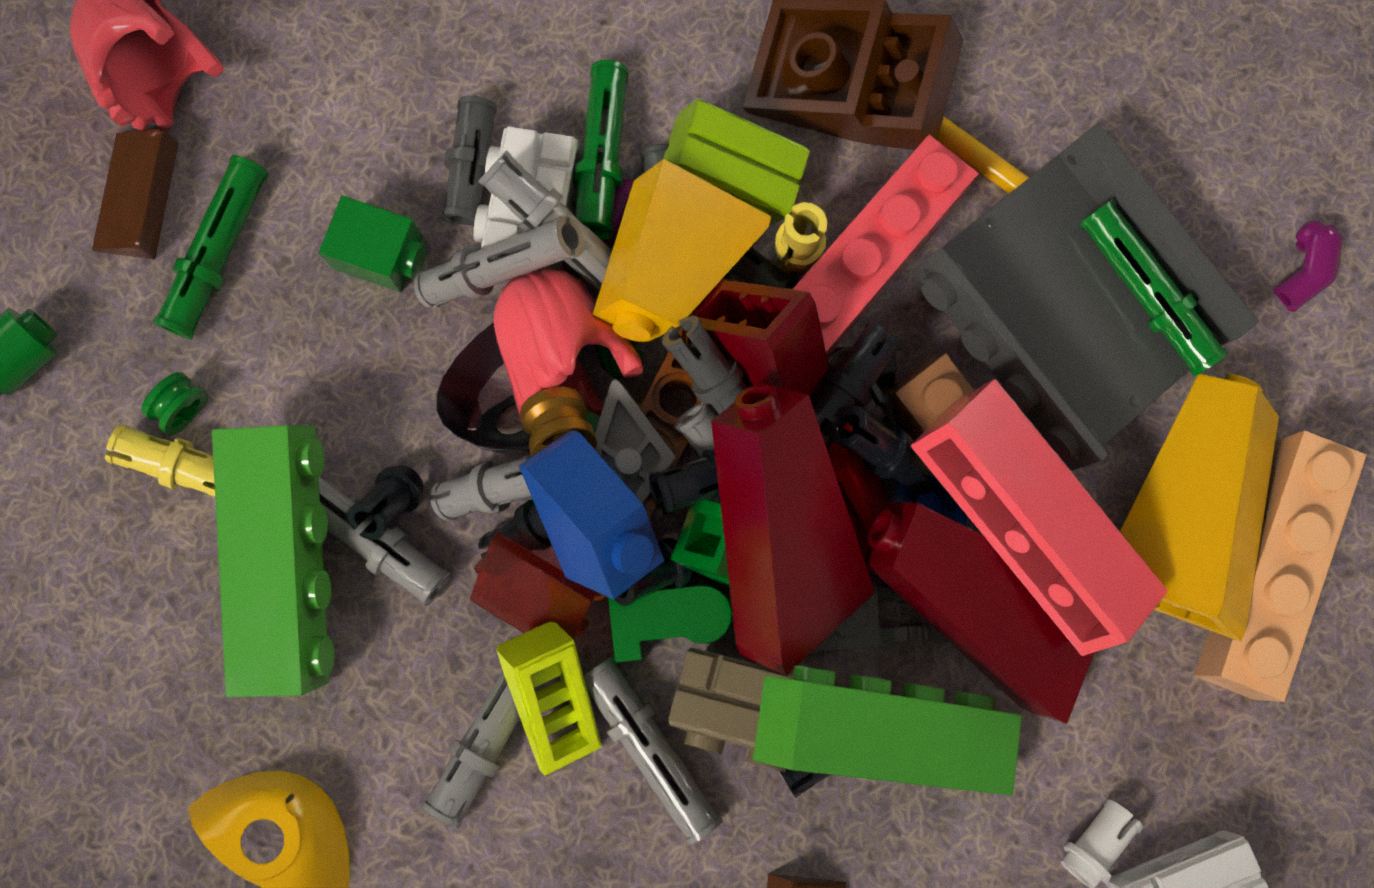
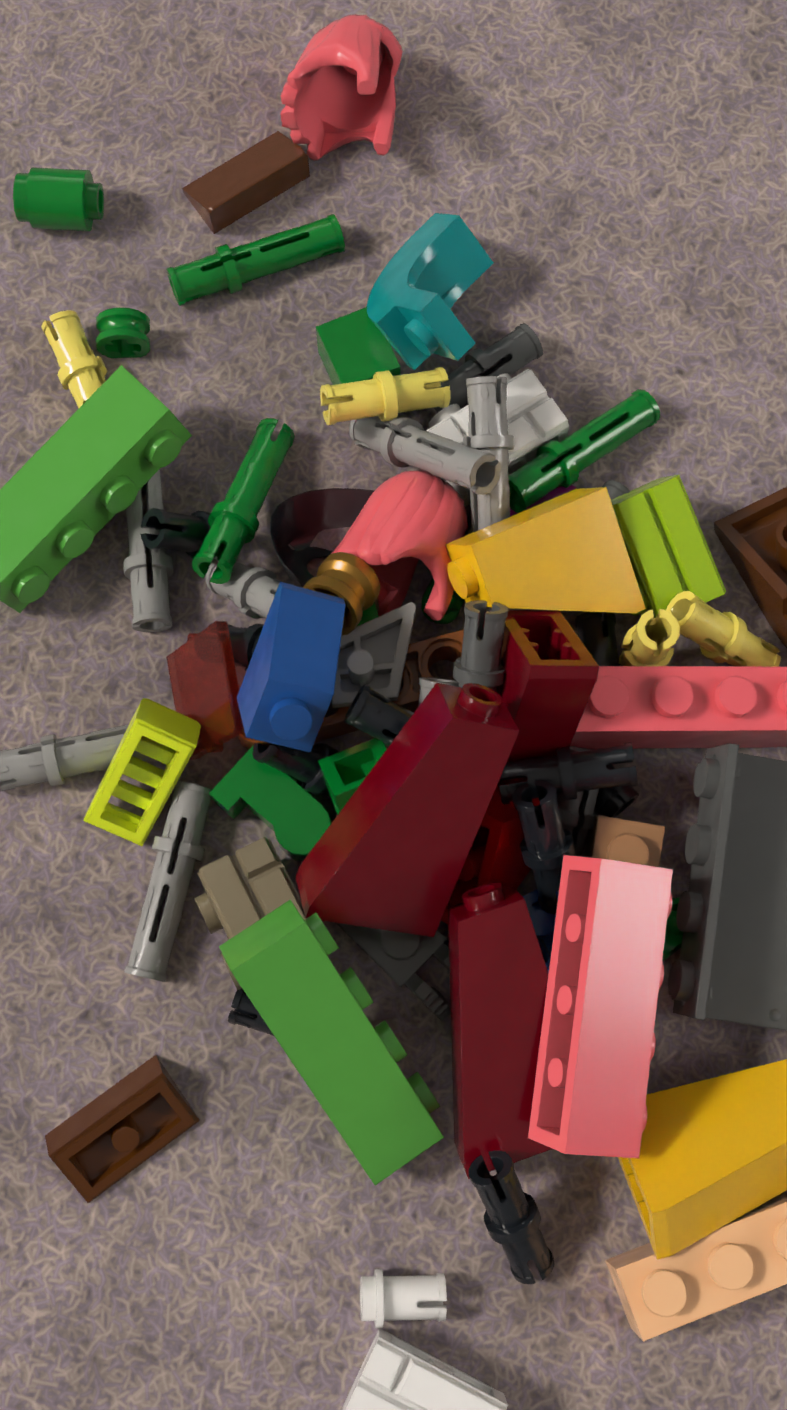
camera: 50 degrees right, 5 degrees down
(361, 145) = (420, 287): none -> teal arch
(415, 451) = (235, 518): none -> green pin
(426, 252) = (385, 396): none -> light yellow pin
(839, 181) = (721, 635): none -> light yellow pin
(1117, 716) = (511, 1217): none -> black pin

